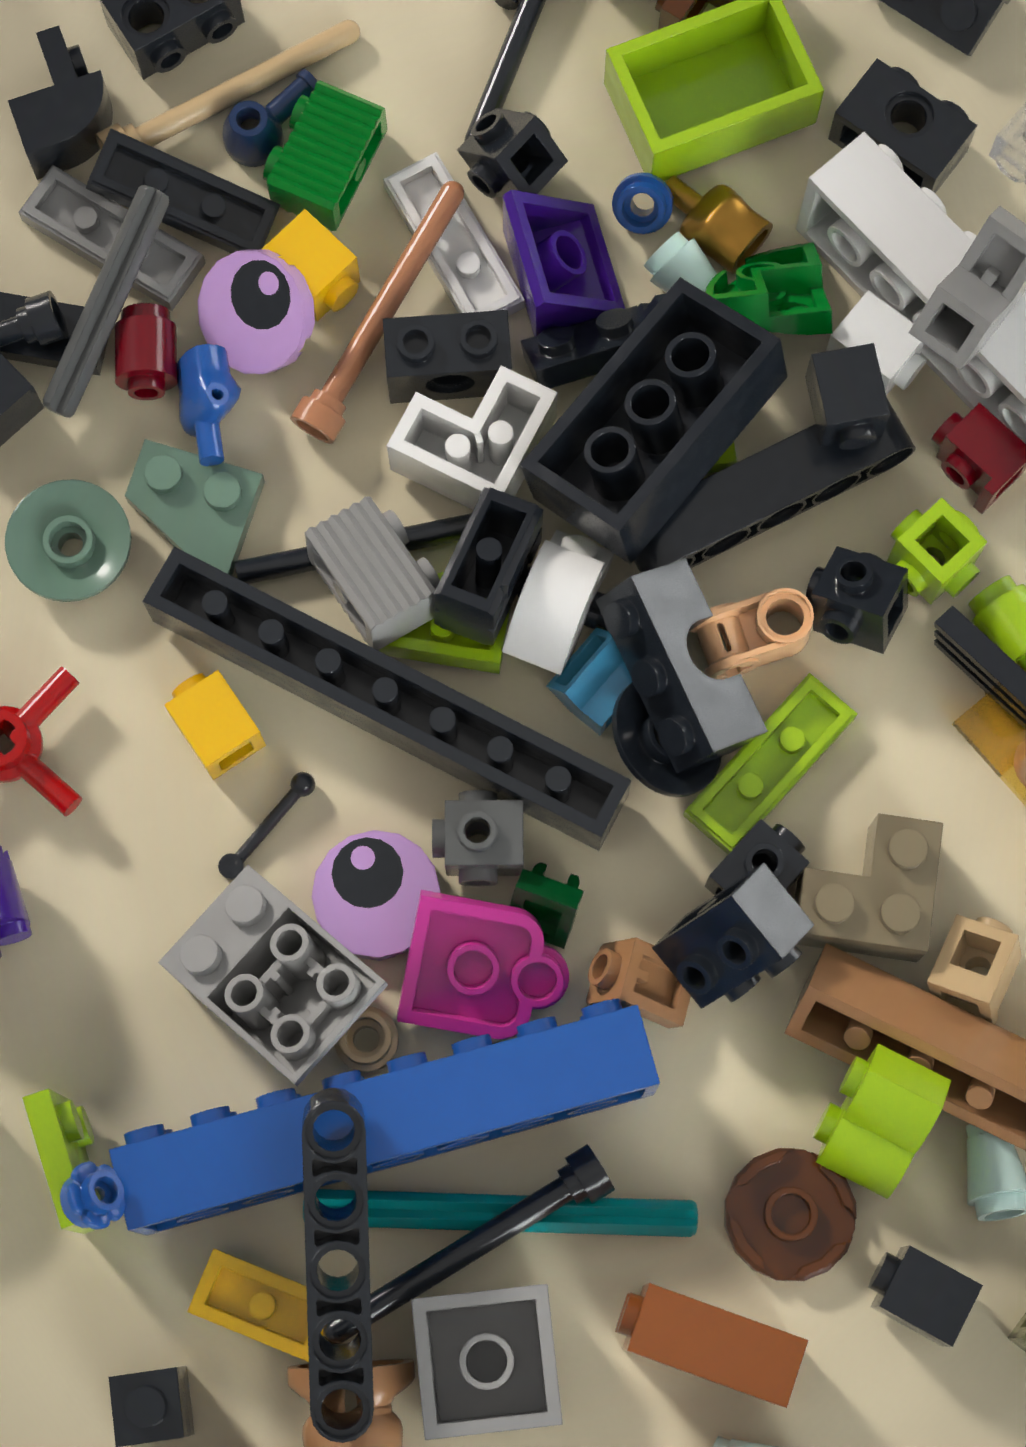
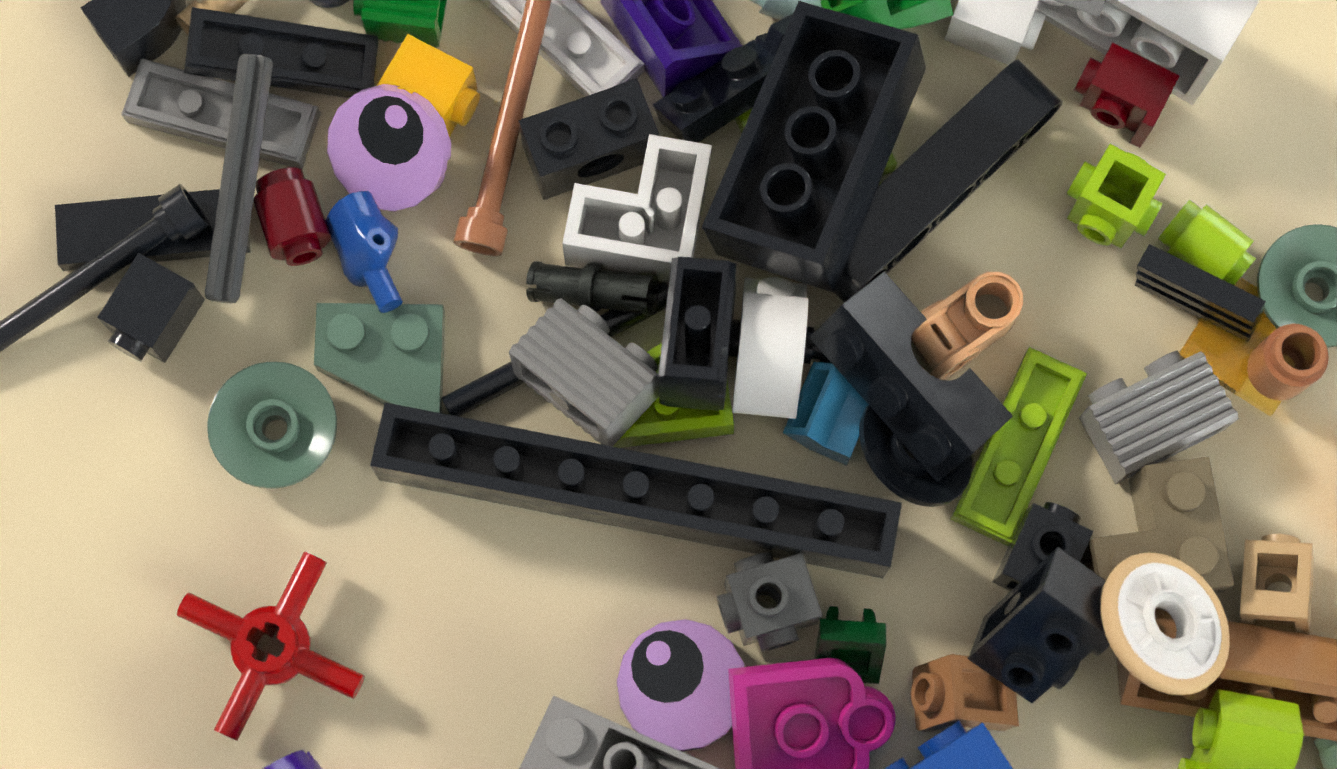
camera: 20 degrees left, 0 degrees up
(214, 722) = (472, 563): yellow brick -> none
(232, 864) = (531, 697): black hinge -> none
(408, 497) = (593, 287): none -> pearl dark grey pin
(809, 971) = (1129, 622): none -> white wheel
(847, 396) = (990, 71): black brick -> none
(858, 599) = (1056, 262): black brick -> none
(912, 771) = (1157, 415): none -> light grey brick

